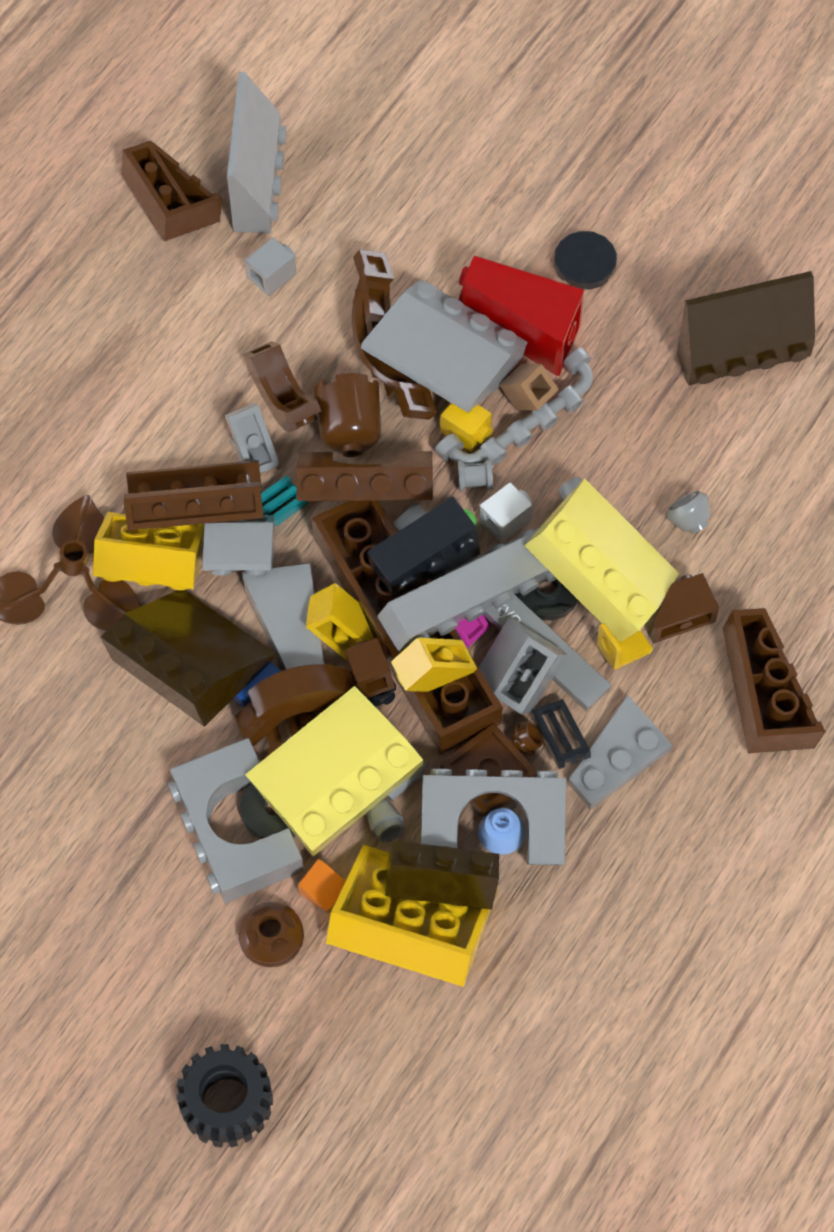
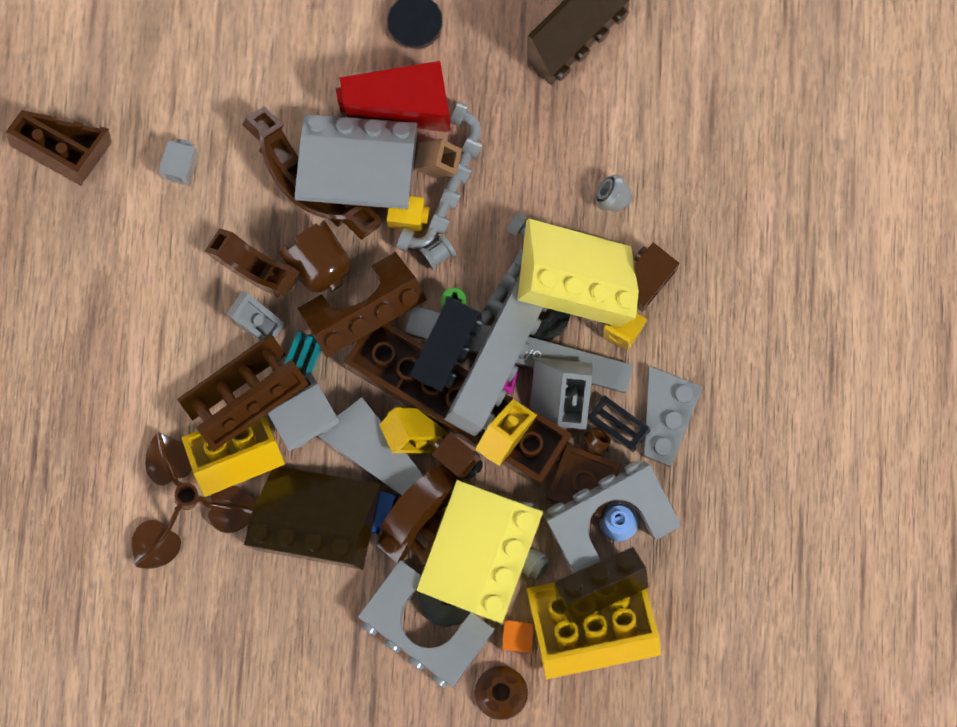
camera: 25 degrees left, 15 degrees up
(254, 159) = (114, 80): light grey slope -> none
(506, 512) = (479, 269): white brick -> none
(768, 694) = (746, 305): reddish brown wedge -> none

